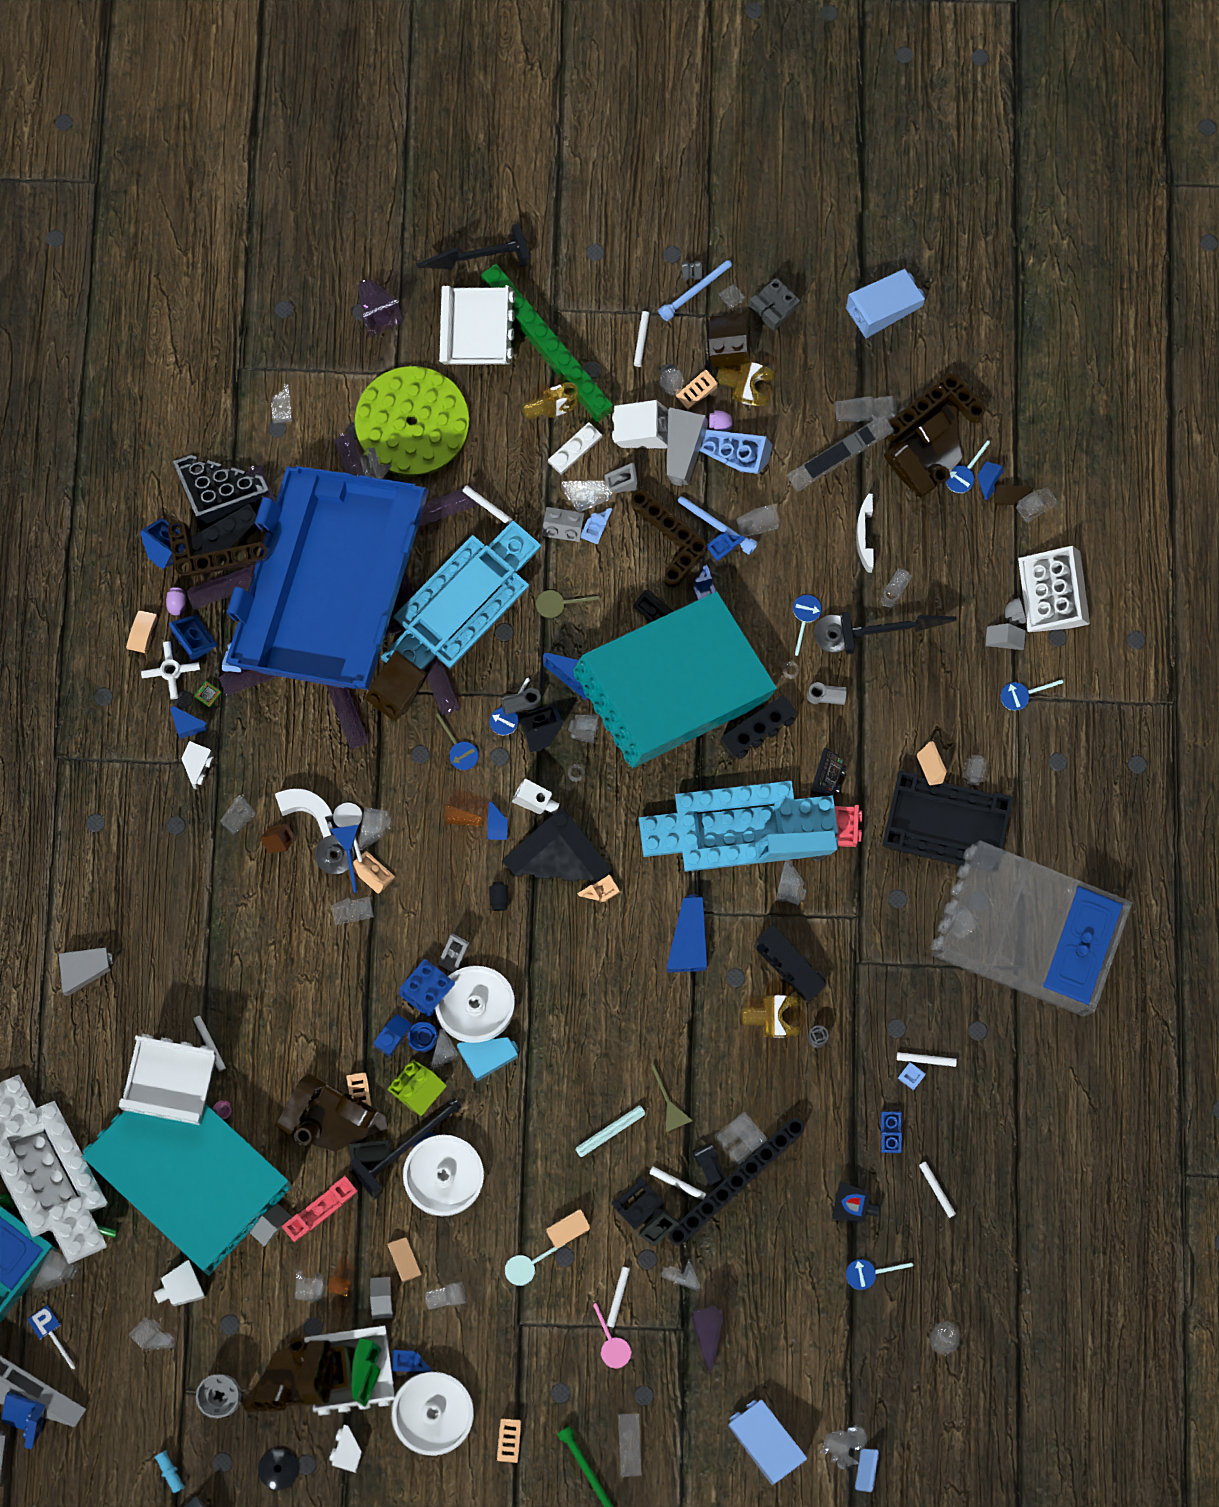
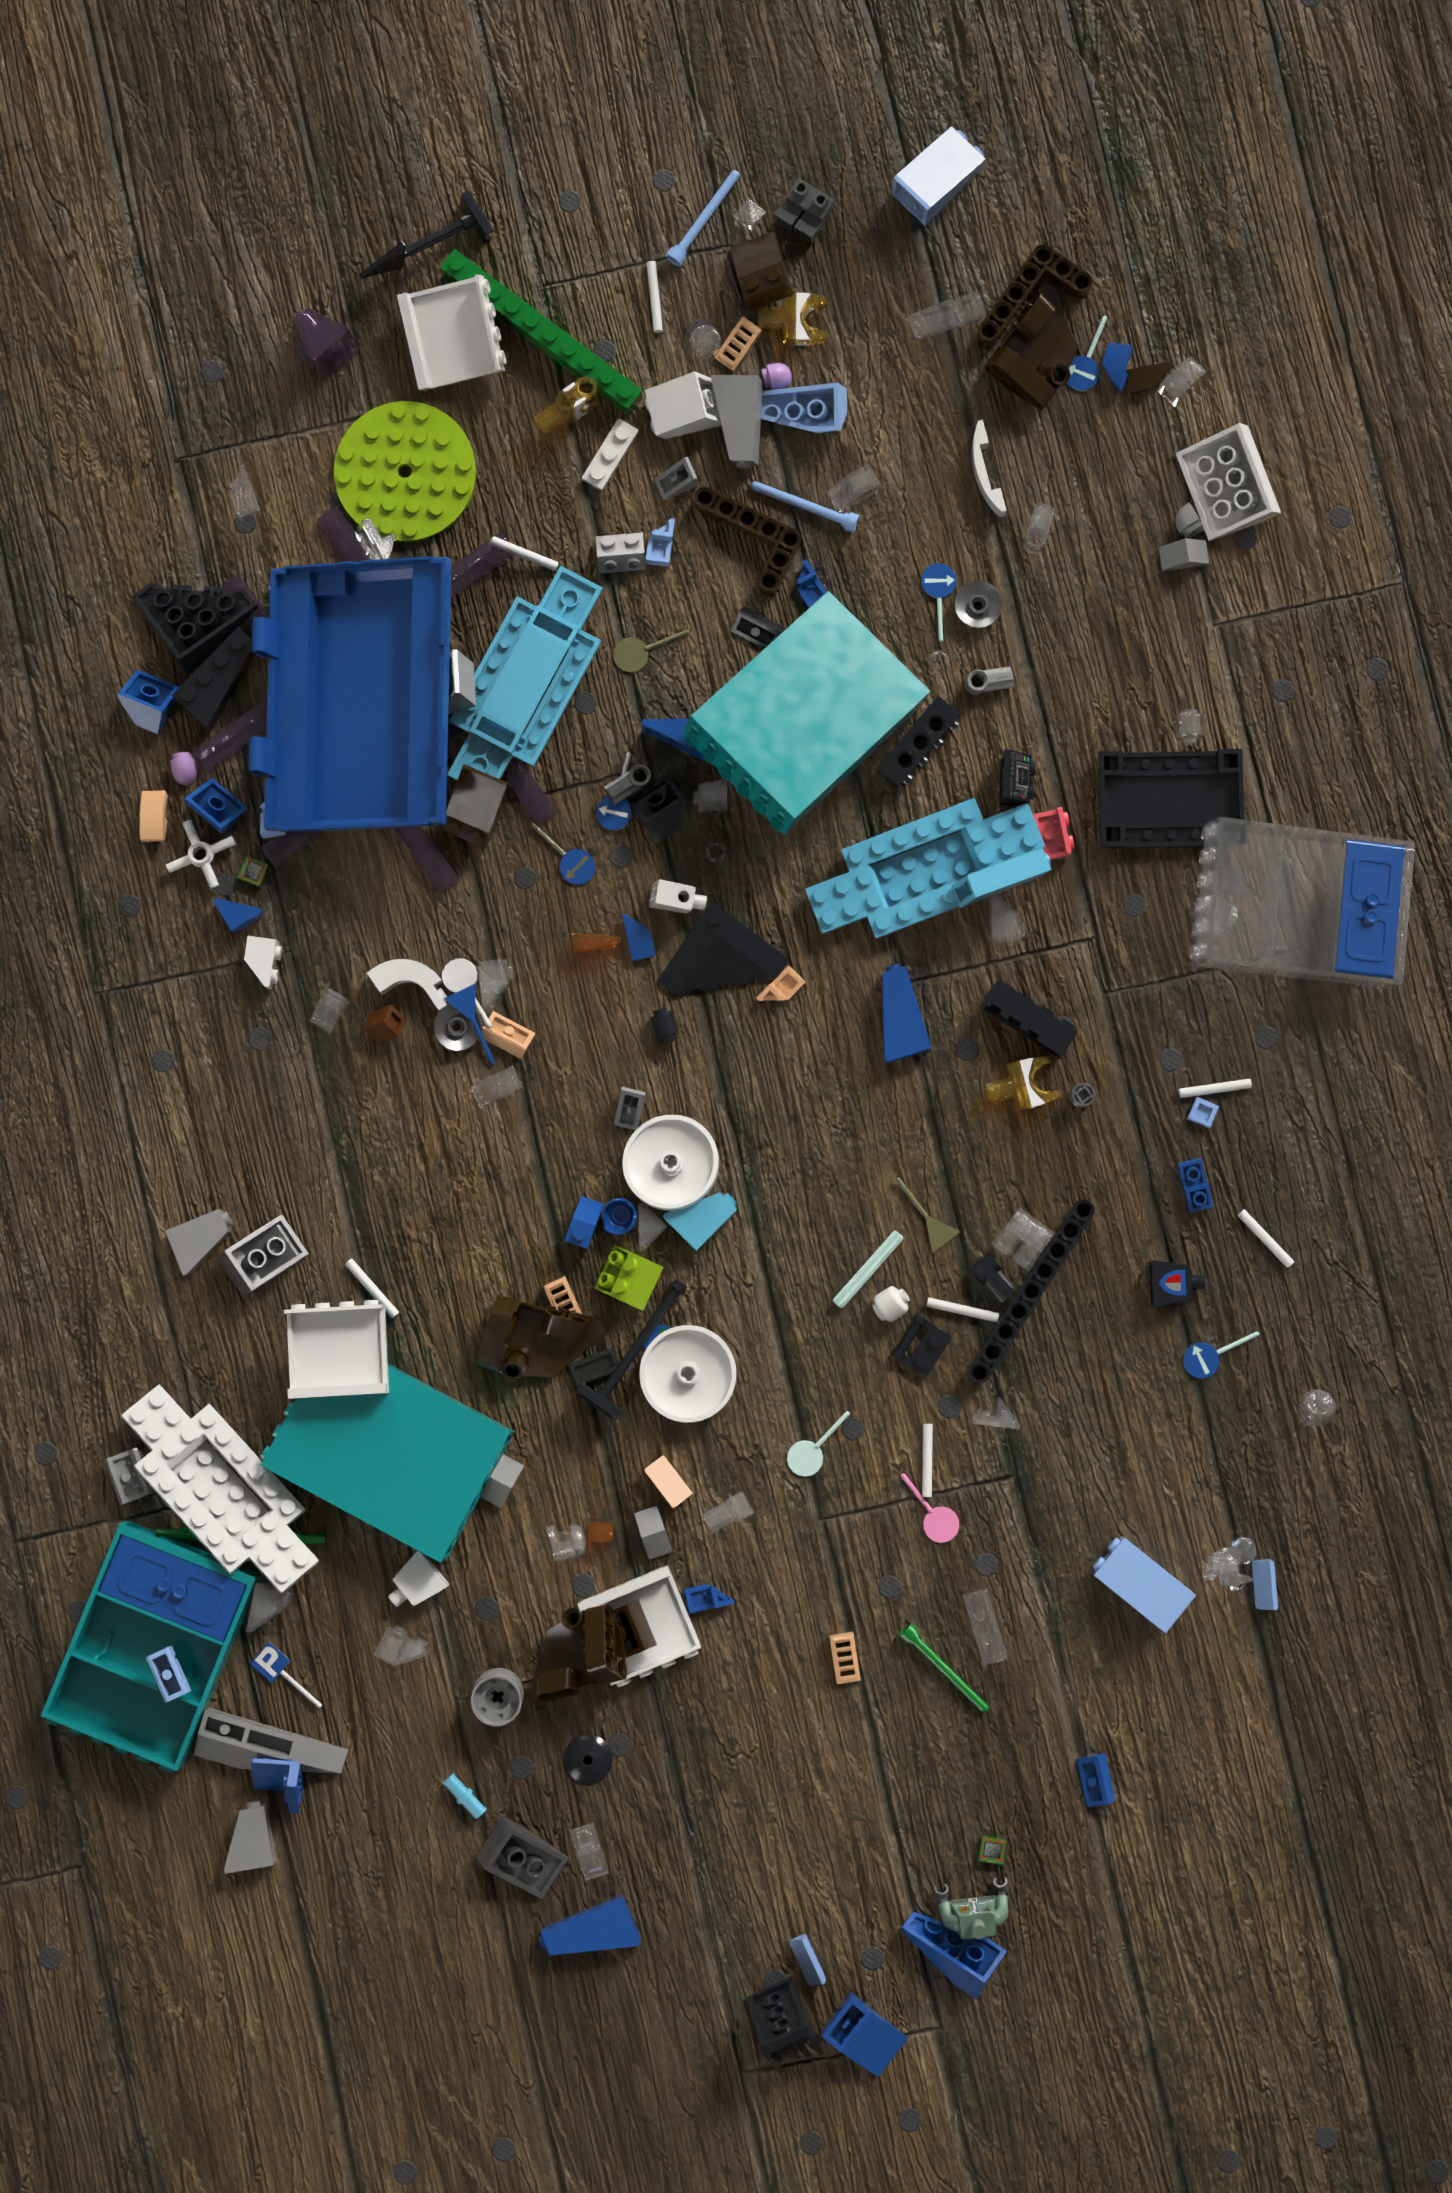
camera: 10 degrees left, 10 degrees up
(129, 994) = (262, 1255): none -> flat silver slope
(212, 557) = (213, 707): dark brown beam -> none
(222, 1109) = (408, 1363): bright pink plate -> none
(319, 1209) = (554, 1450): coral slope -> none
(348, 1451) = (663, 1719): white slope -> none
(364, 1370) = (658, 1625): green slope -> none
(410, 589) = (461, 683): none -> light grey slope
(426, 988) = (609, 1157): blue bracket -> none
(432, 1413) = (748, 1652): white dish -> none
(568, 1228) = (849, 1397): light nougat slope -> none
(586, 493) = (639, 508): clear wing -> none
(621, 1163) = (891, 1304): none -> white head
(657, 1228) = (954, 1369): pearl dark grey slope -> none
(687, 270) = (688, 198): dark grey wheel -> none
(707, 1328) = (1044, 1477): clear purple slope -> none
(723, 545) = (820, 528): blue slope -> none
(840, 453) = (931, 378): tile -> none
(923, 622) = (1000, 598): black piece -> none
(932, 764) = (1135, 733): light nougat slope -> none
(1016, 696) = (1214, 623): blue piece -> none

